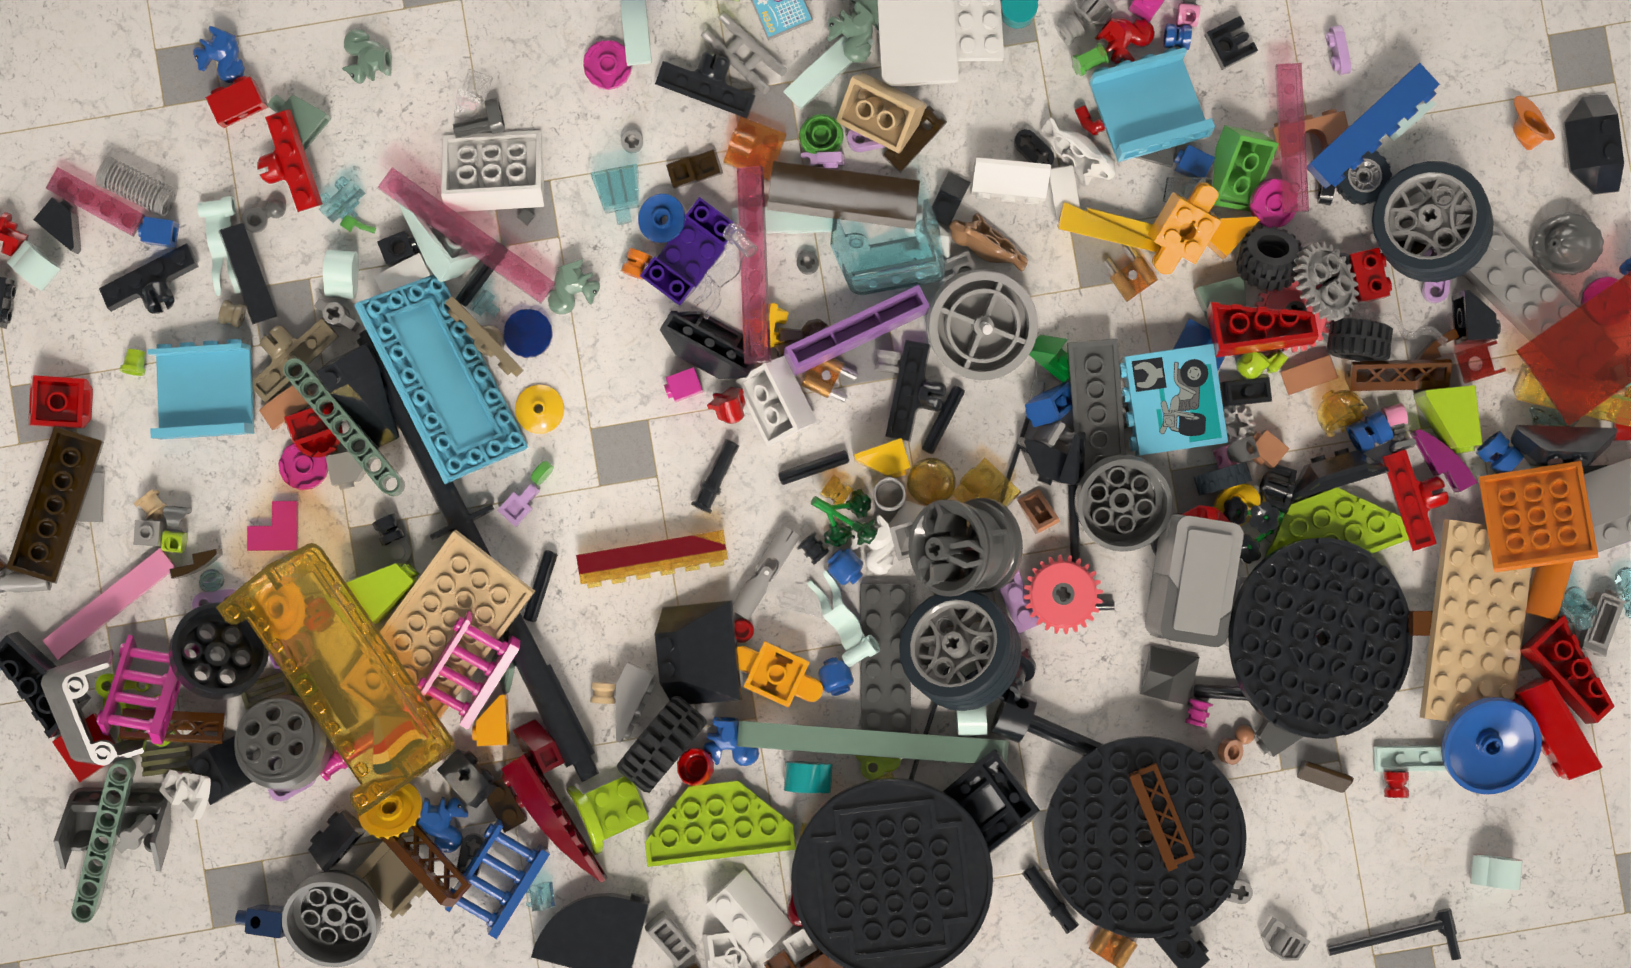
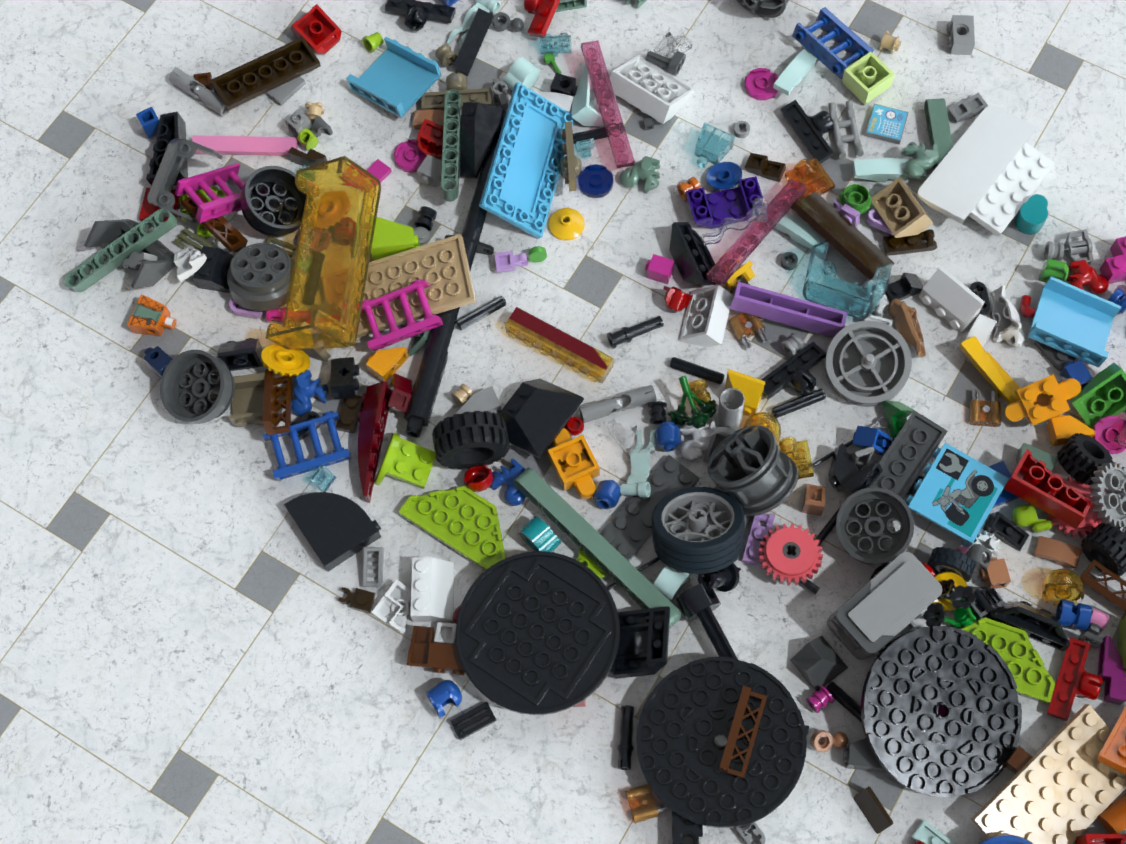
camera: 45 degrees right, 20 degrees down
(203, 878) = (150, 317): none -> orange torso

